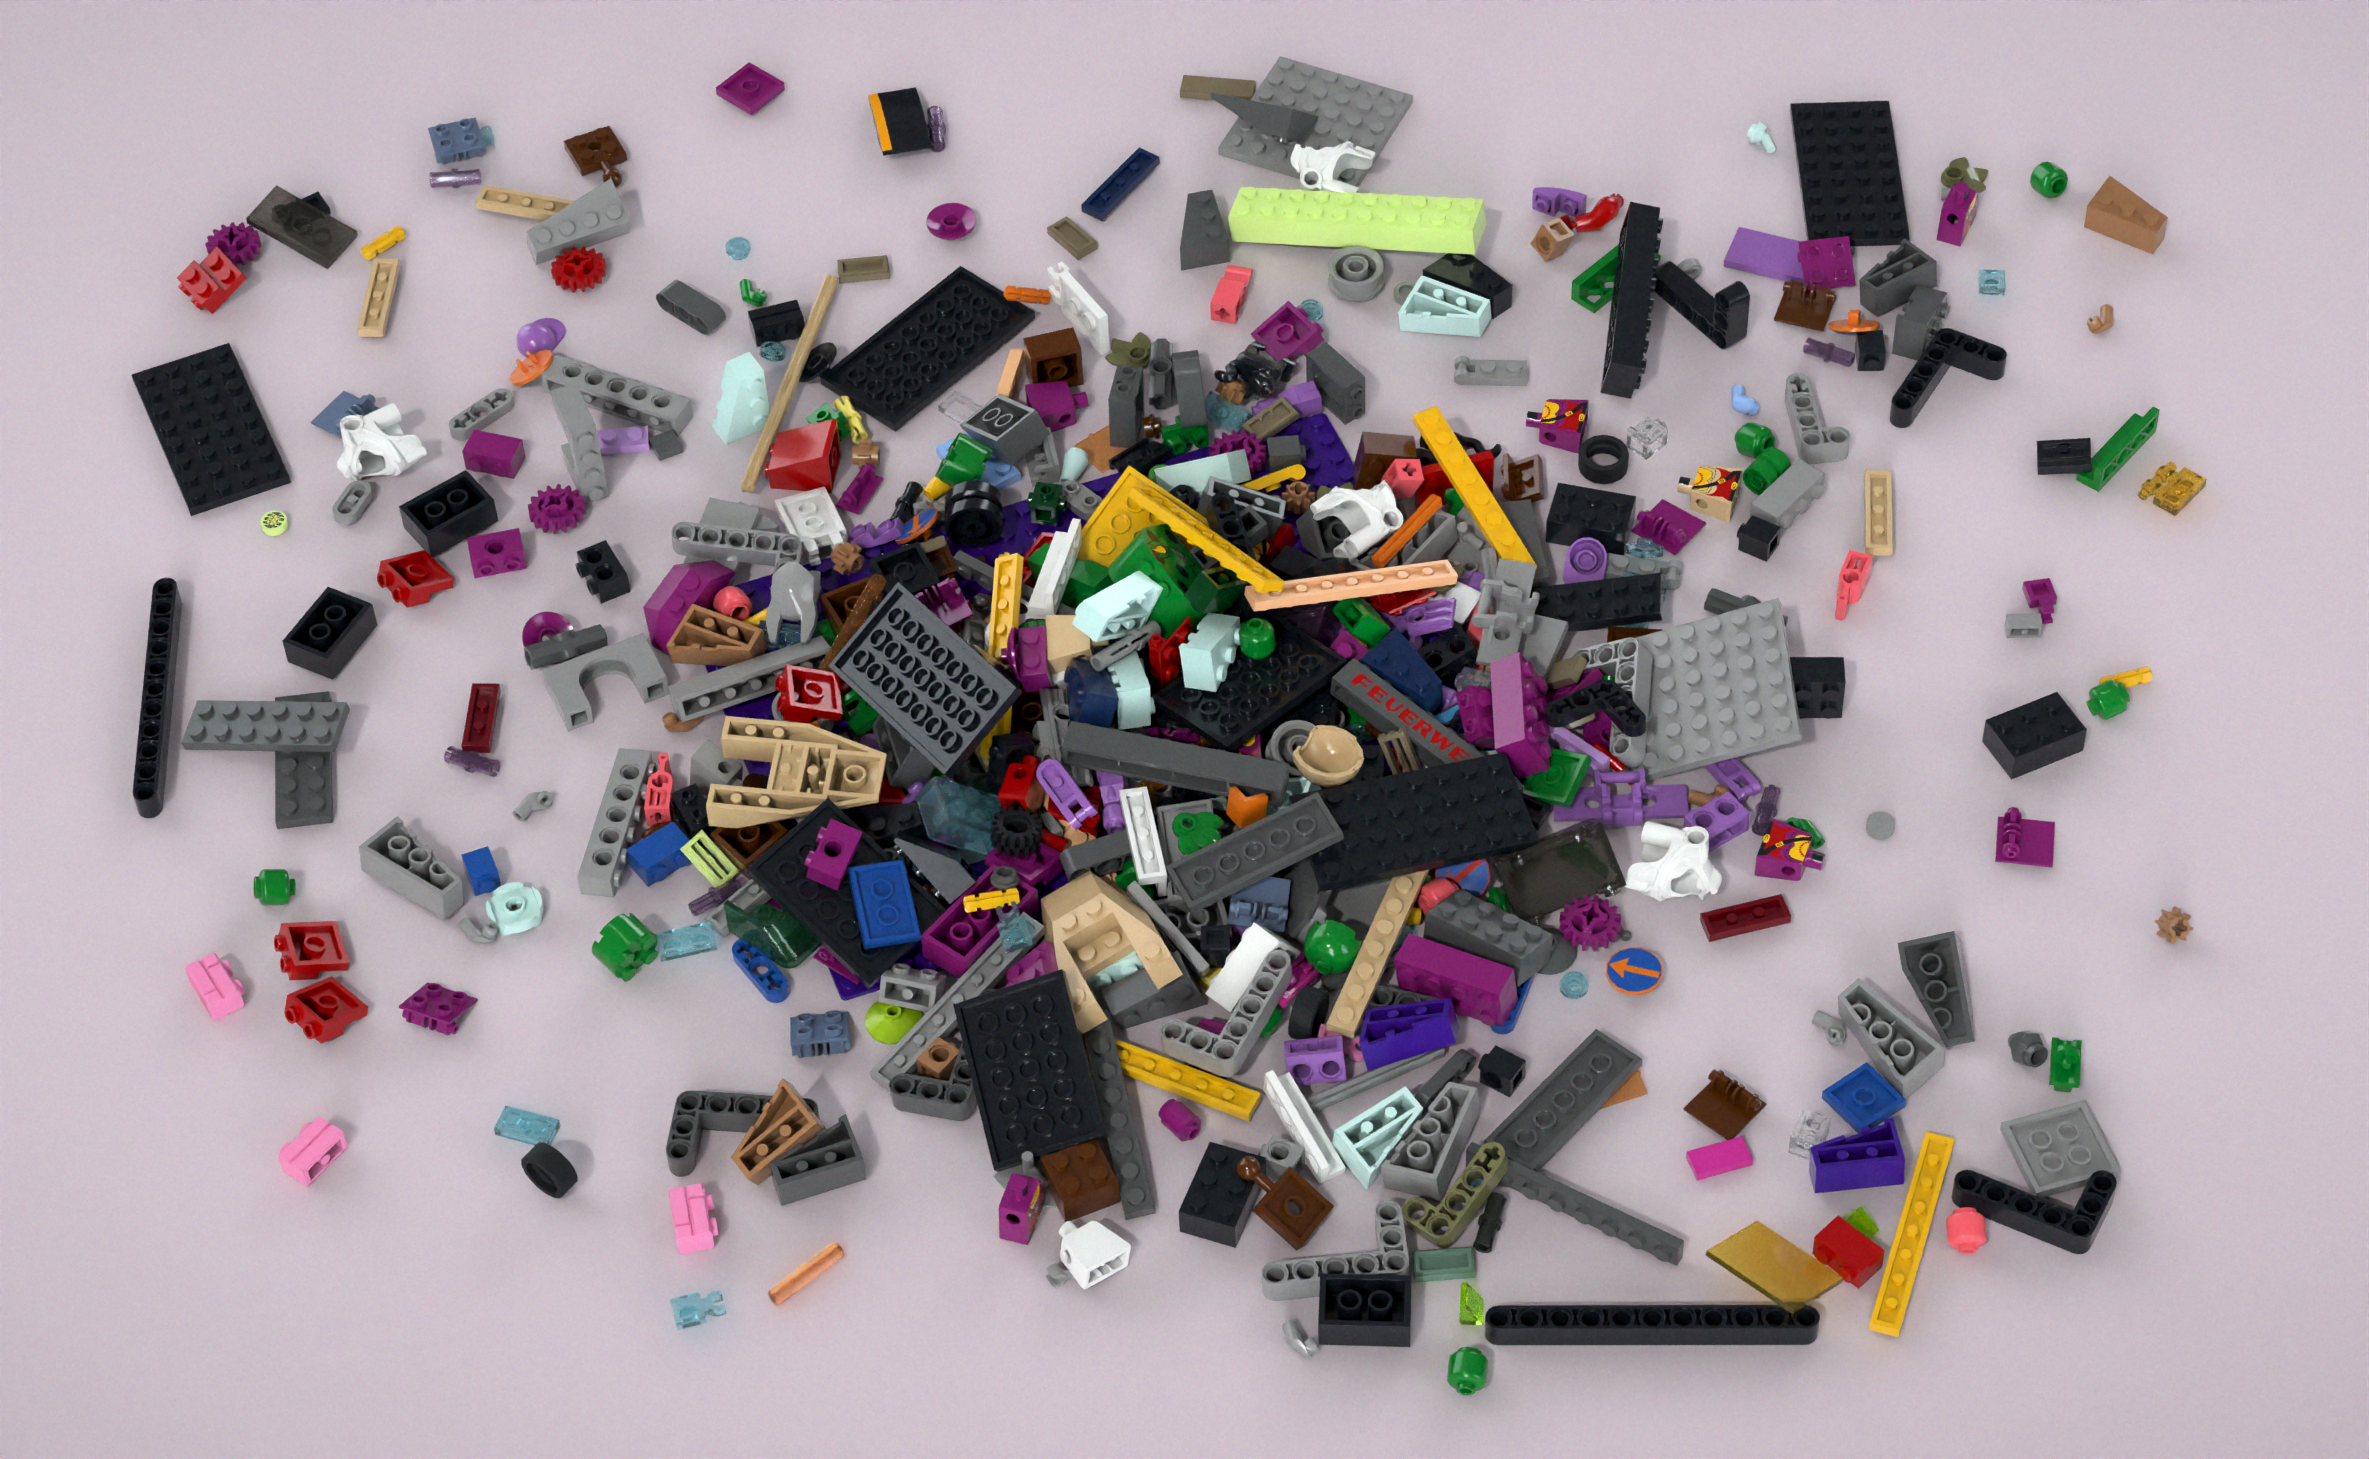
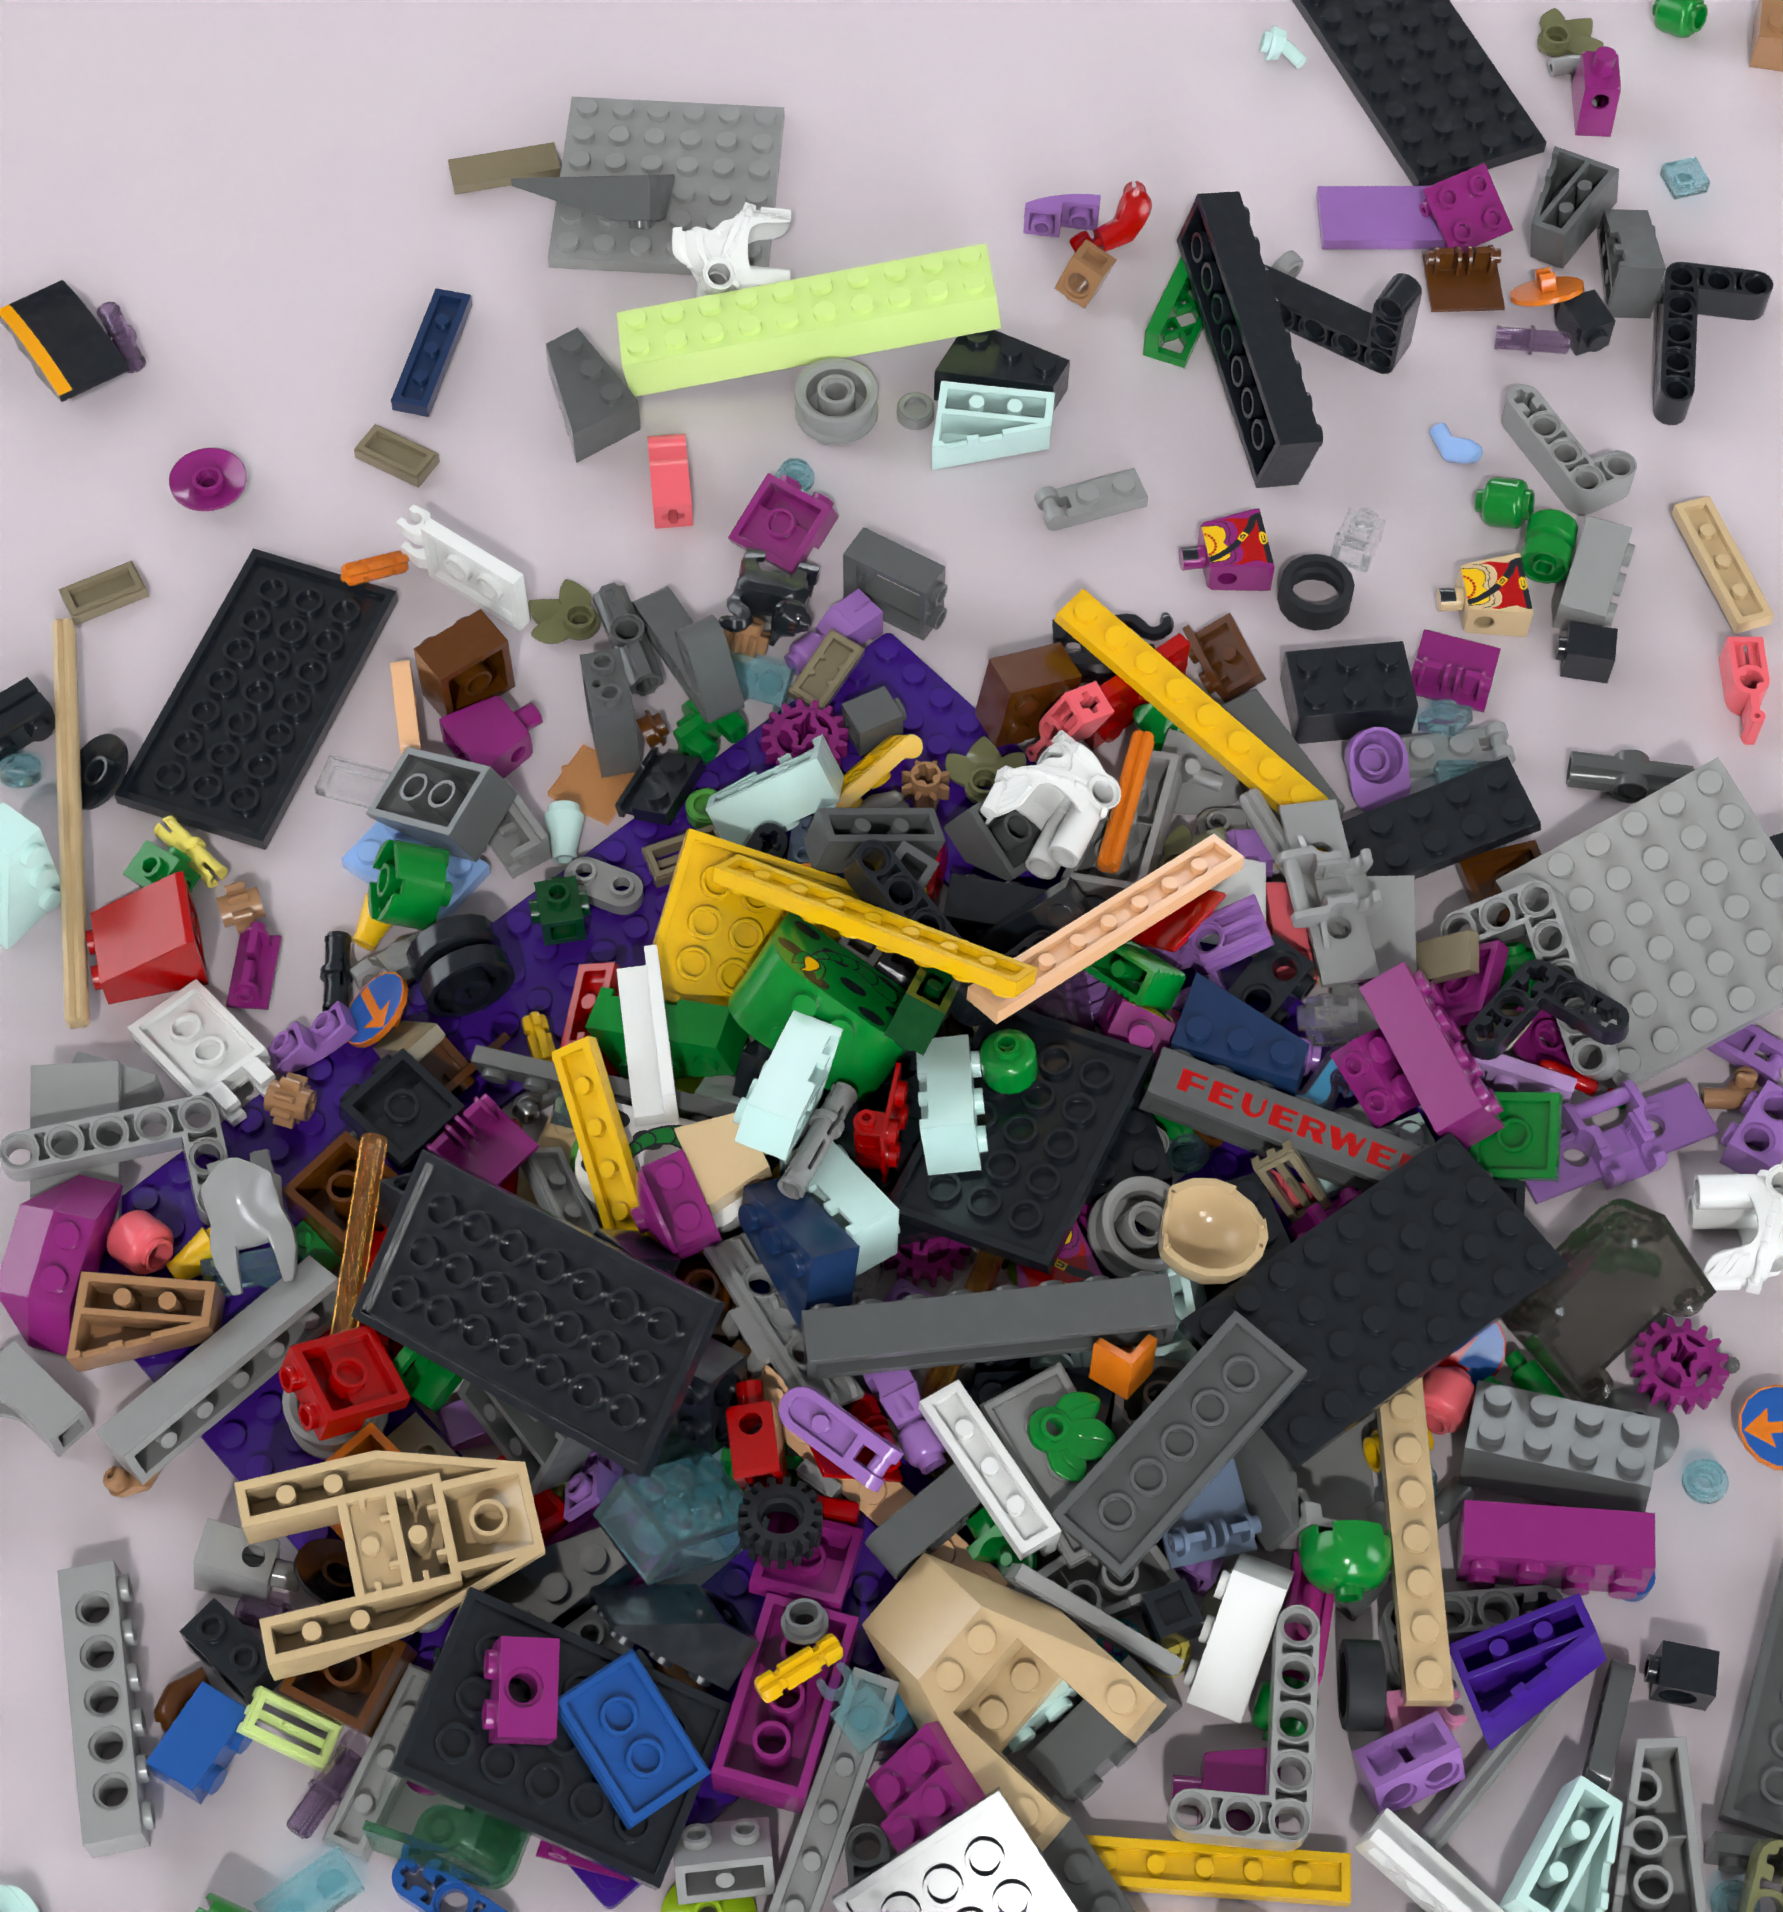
camera: 25 degrees left, 10 degrees up
(658, 793) = (163, 1631): coral piece -> none

